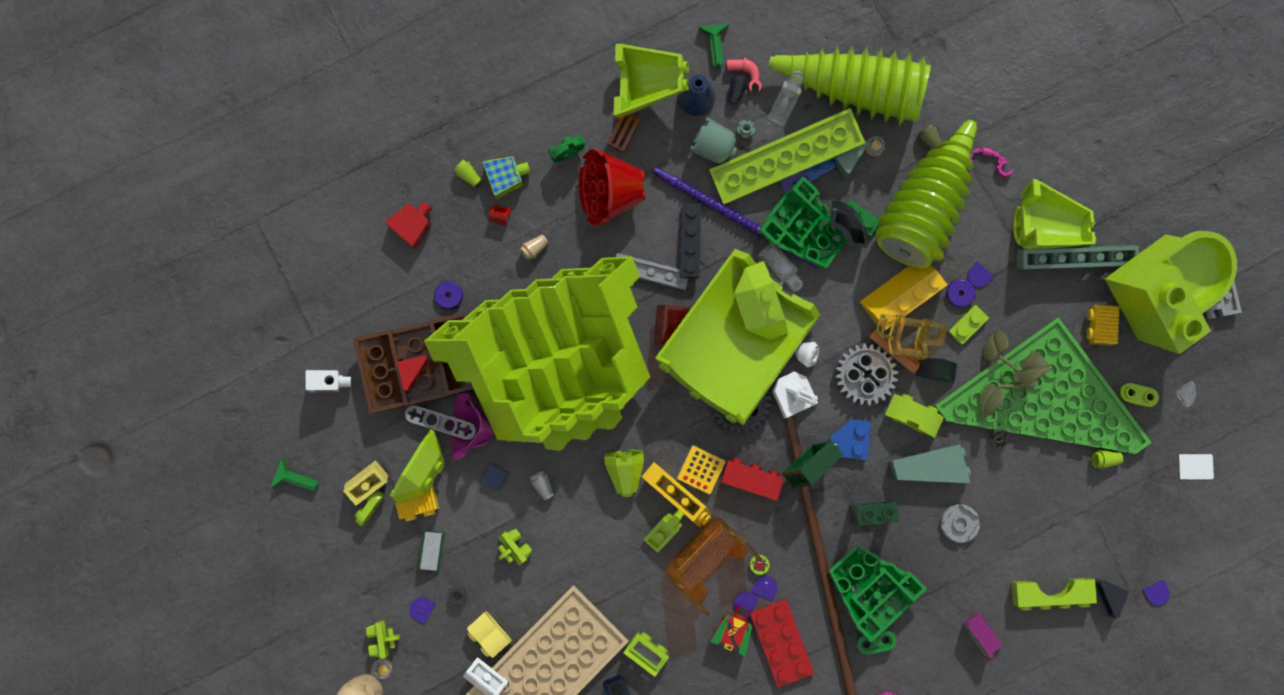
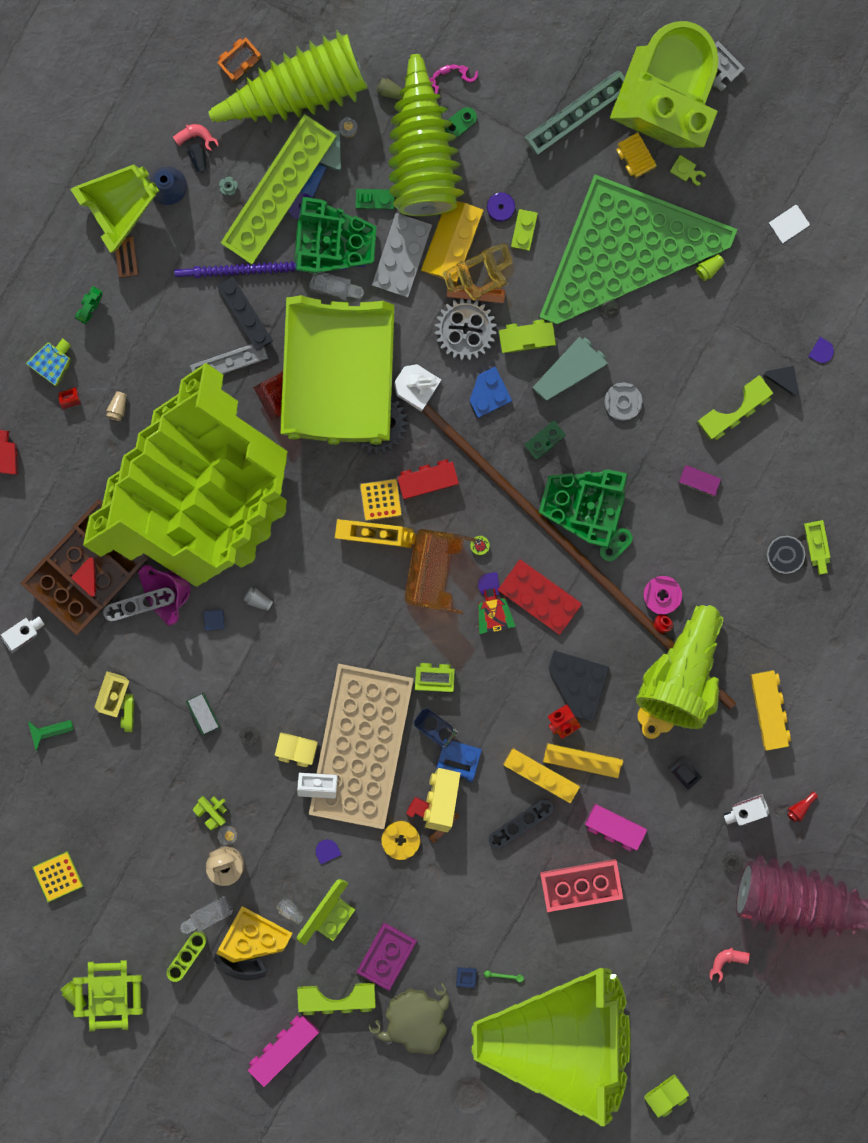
camera: 30 degrees left, 5 degrees up
(216, 607) = (58, 876): none -> yellow tile
(420, 471) = (151, 654): lime wedge -> none
(421, 609) = (227, 767): dark purple piece -> none
(424, 504) = (164, 683): yellow brick -> none
(448, 302) = (65, 491): dark purple piece -> none
(467, 173) = (18, 381): lime cone -> none
(518, 554) = (268, 669): lime hips -> none
(608, 187) = (146, 315): red cone -> none
(625, 470) = (318, 542): lime cone -> none
(664, 531) = (383, 569): lime hinge -> none
(714, 32) = (146, 120): green piece -> none
(714, 142) = (209, 217): sand green cylinder -> none
(760, 303) = (336, 329): lime wedge -> none
(765, 587) = (497, 560): dark purple piece -> none
(786, 99) = (245, 140): clear brick -> none
(807, 353) = (405, 344): white cone -> none
(812, 464) = (467, 434): dark green window -> none
(823, 33) = (239, 59): none -> orange window
(849, 222) = (368, 211): black brick -> none
(852, 278) = (402, 255): none -> light grey plate
(937, 369) = (522, 285): black slope -> none
(972, 203) = (460, 123): none -> green plate
(979, 275) = (507, 181): dark purple piece -> none
(1032, 369) = (595, 245): olive plant -> none
(1051, 220) = (536, 95): lime cone -> none
(1135, 363) = (685, 169): none -> lime plate
(1139, 395) = (703, 195): lime plate -> none
(1187, 394) = (743, 167): clear tile -> none

